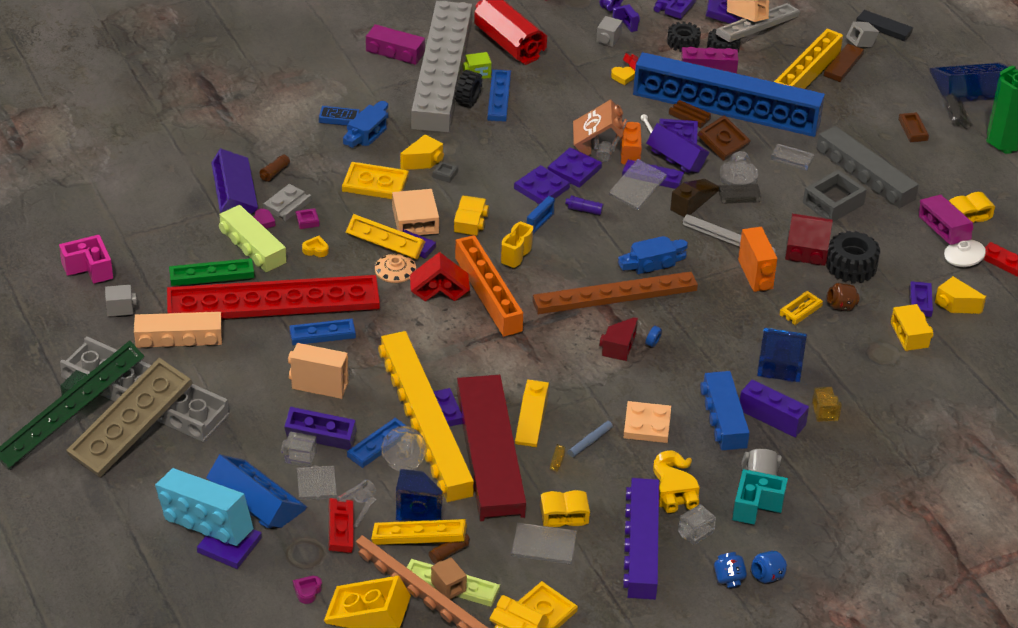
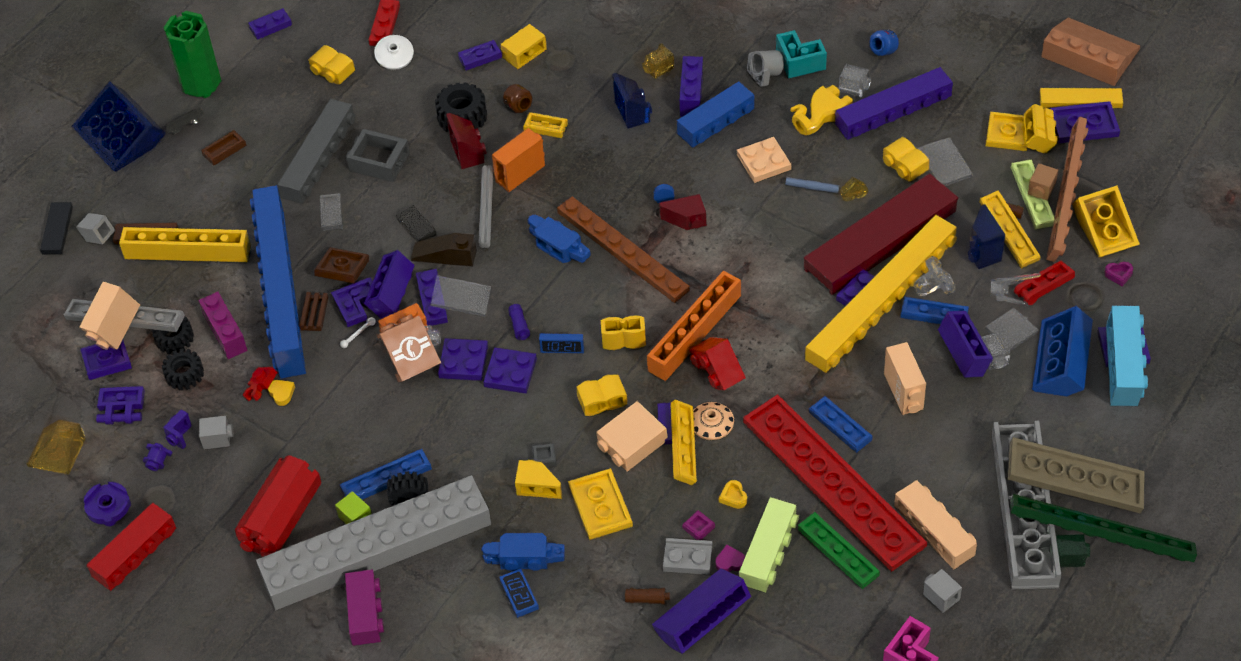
camera: 115 degrees left, 10 degrees up
(532, 413) = (817, 227): yellow slope -> none
(738, 171) = (387, 235): clear tile -> none
(769, 566) = (860, 26): blue head -> none
(945, 219) = (364, 70): magenta brick -> none
(959, 297) = (461, 33): yellow slope -> none

